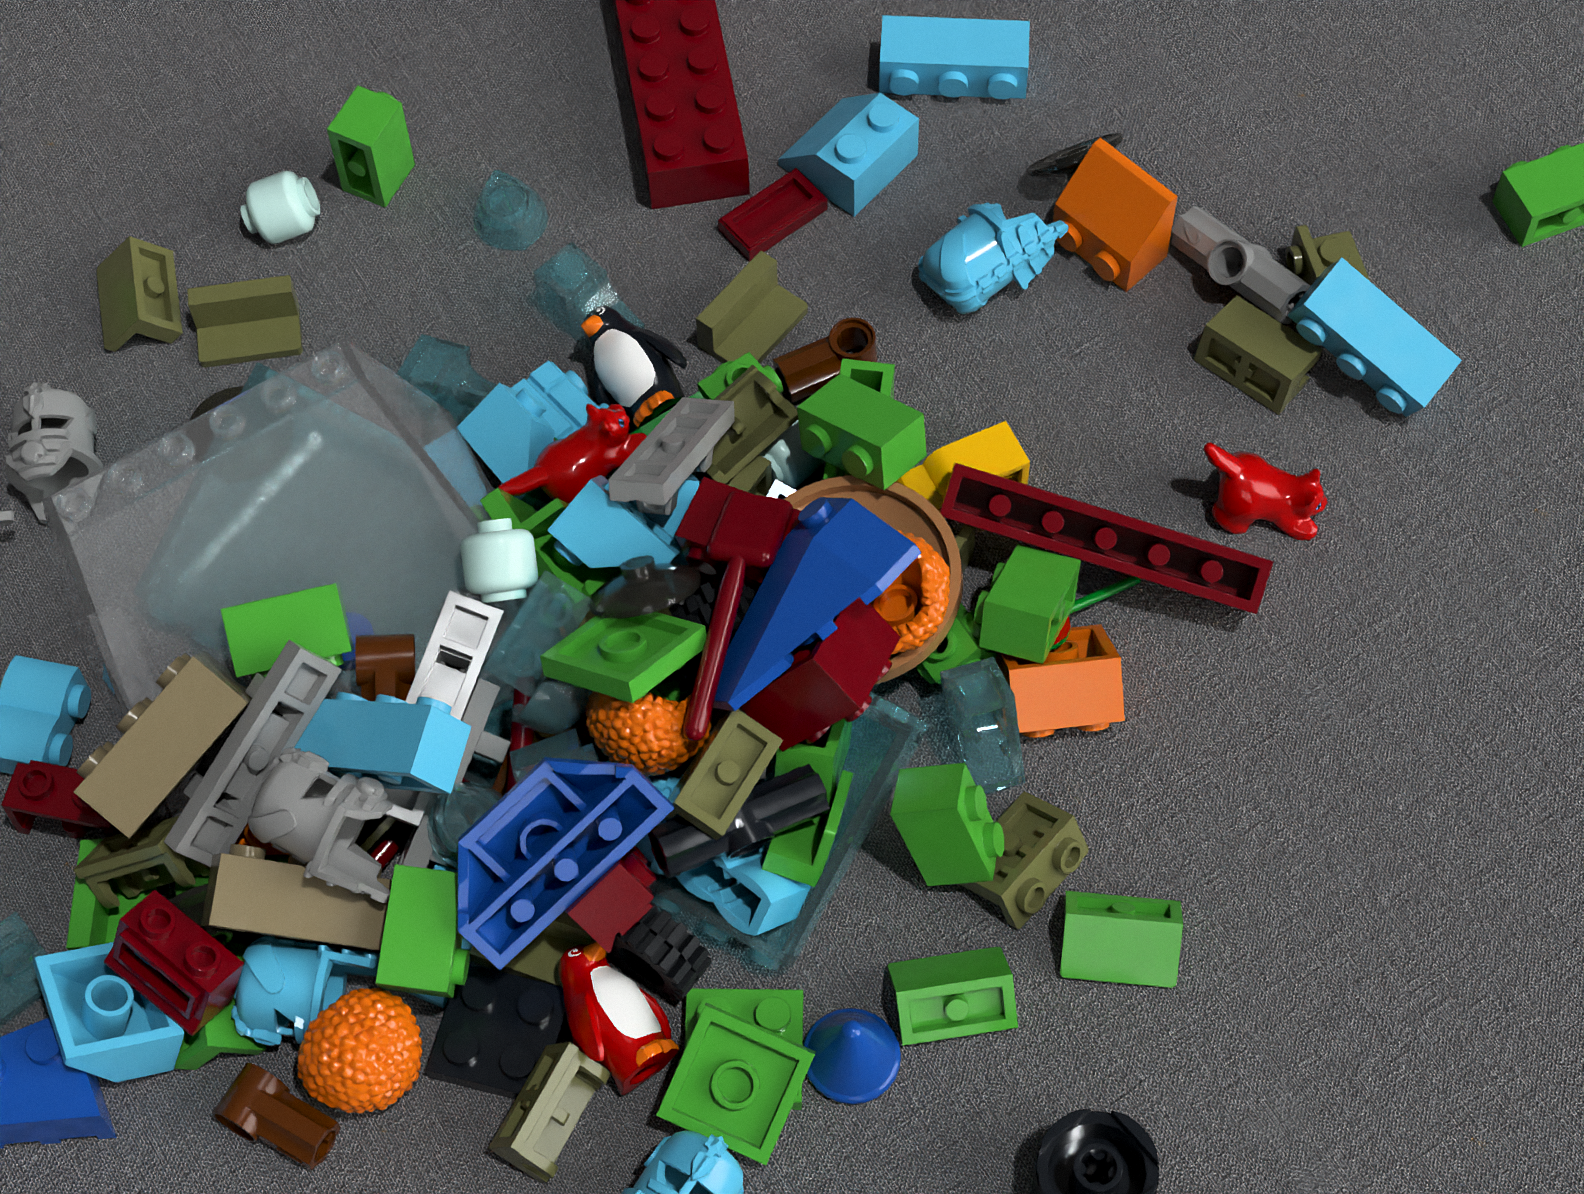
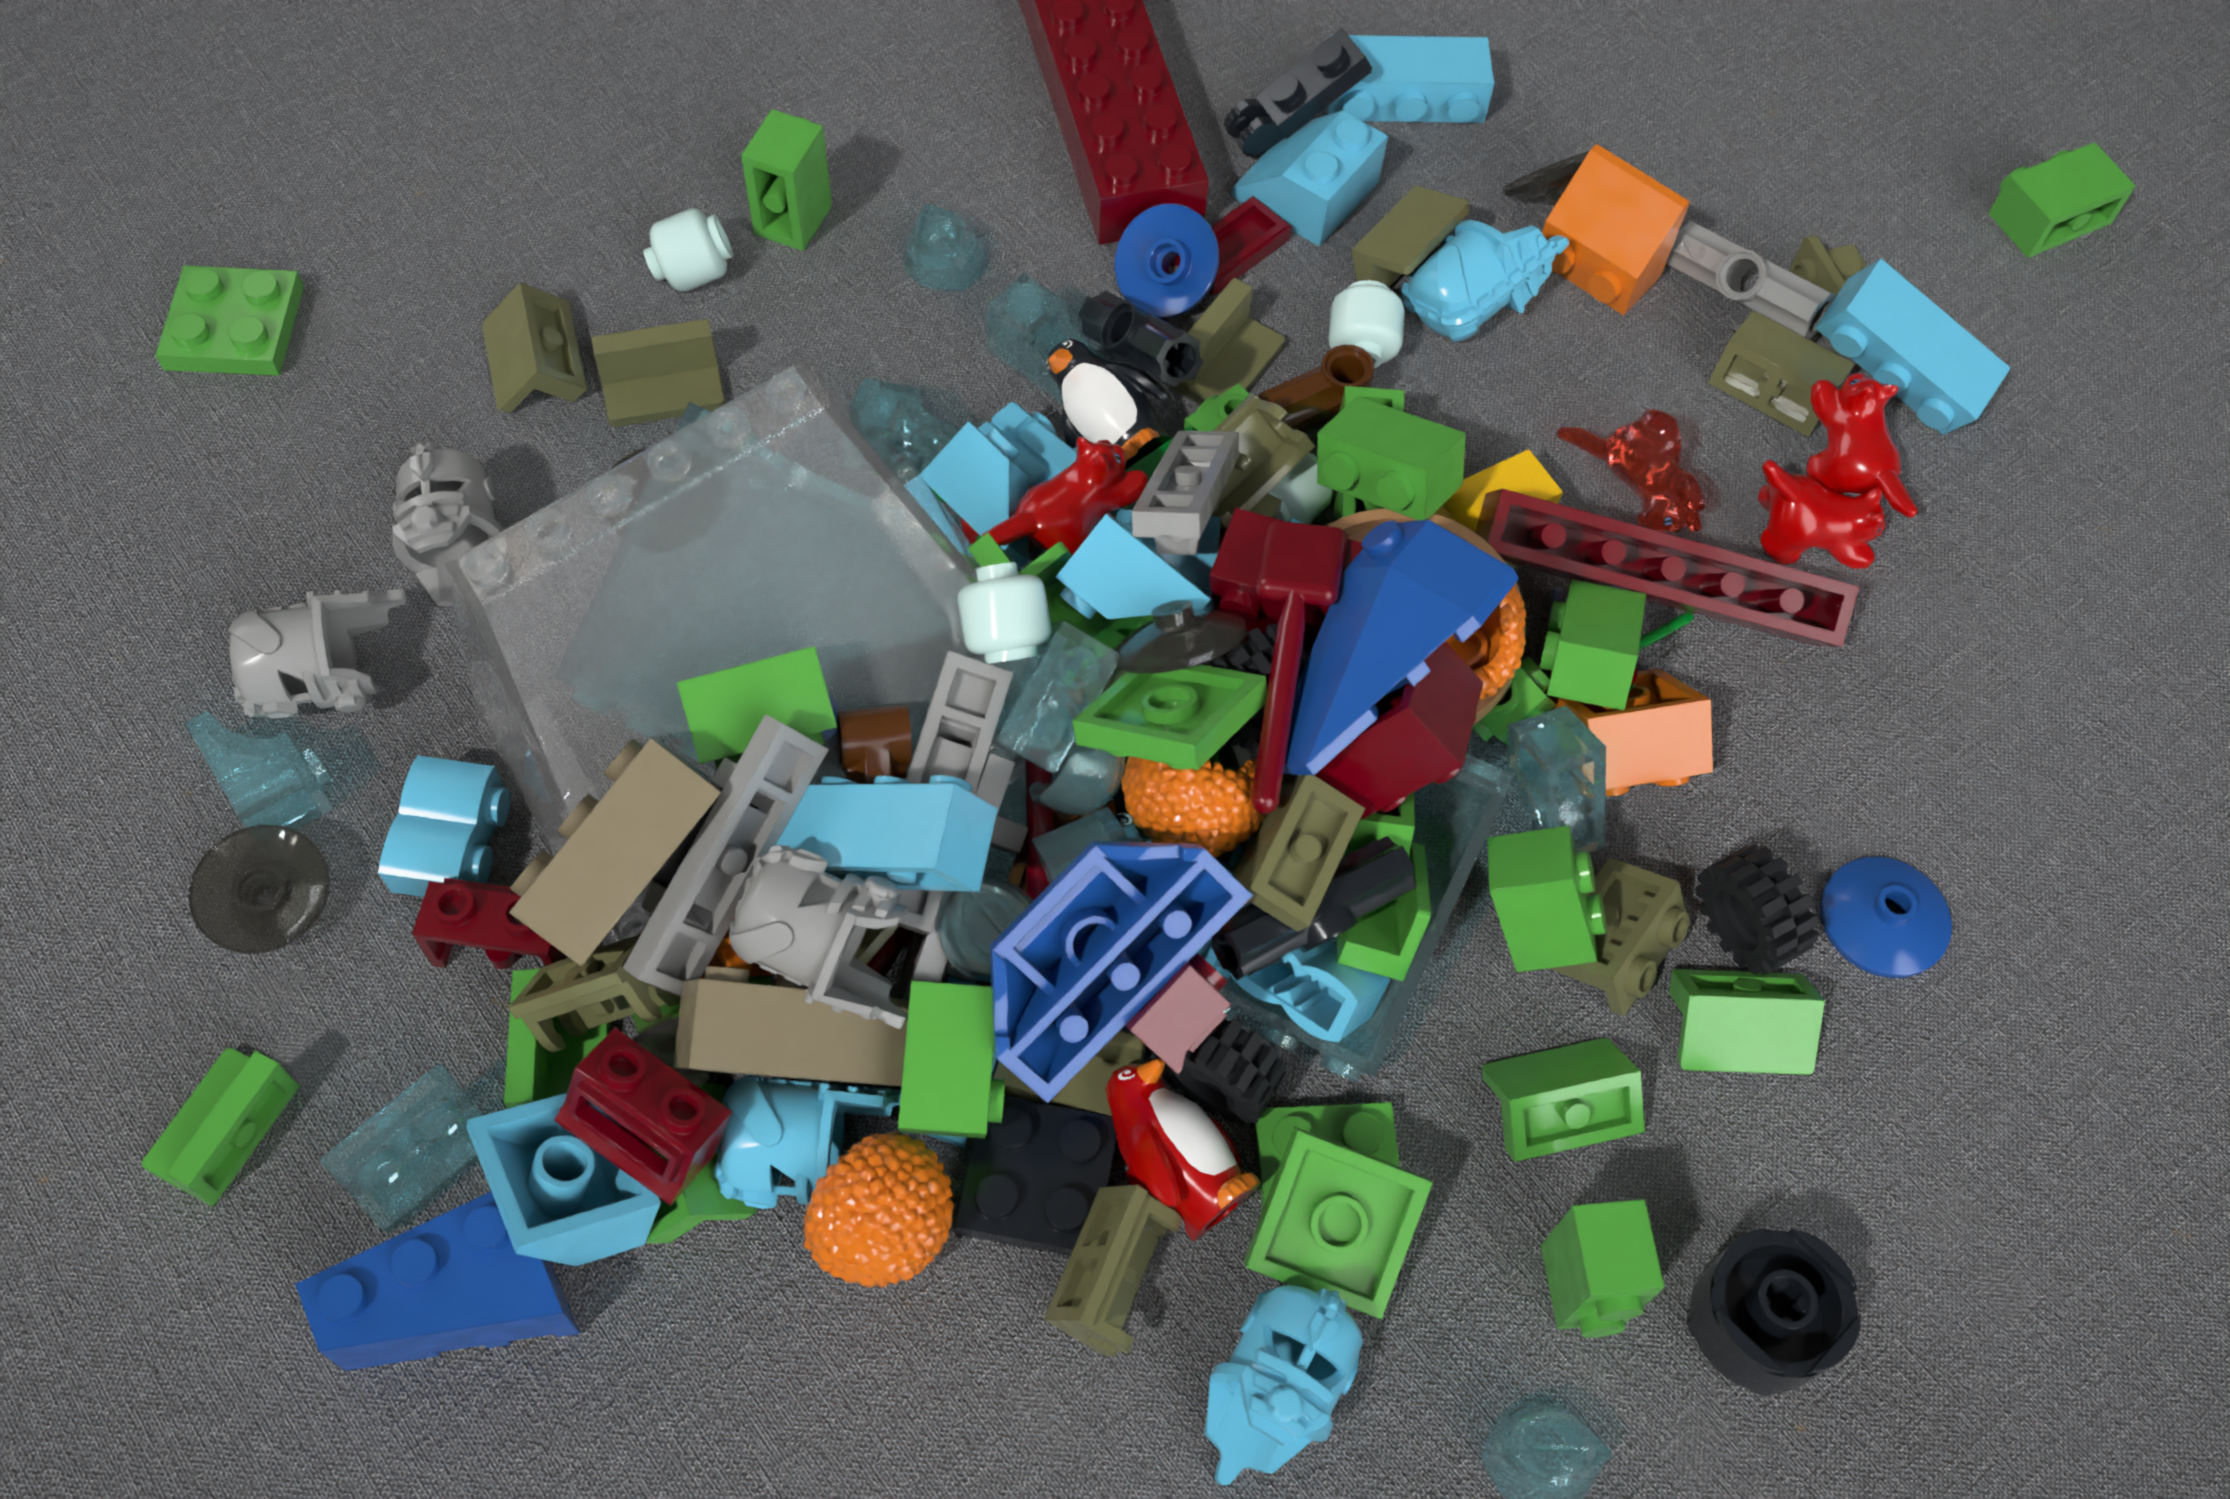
camera: 10 degrees left, 0 degrees up
(264, 1109) = (762, 1288): reddish brown piece -> none
(667, 306) = (1141, 338): none -> black piece
(689, 227) = (1145, 258): none -> blue dish
(844, 73) = (1297, 95): none -> black hinge
(853, 1056) = (1467, 1174): blue hat -> none
(880, 294) = (1369, 318): none -> light aqua head
(924, 215) = (1407, 234): none -> olive panel
(951, 1133) = (1601, 1266): none -> bright green brick
(1117, 435) = (1648, 462): none -> clear red animal
(1139, 842) = (1757, 909): none -> black tyre
(1261, 877) = (1870, 933): none -> blue dish
(1310, 425) = (1859, 441): none -> red animal

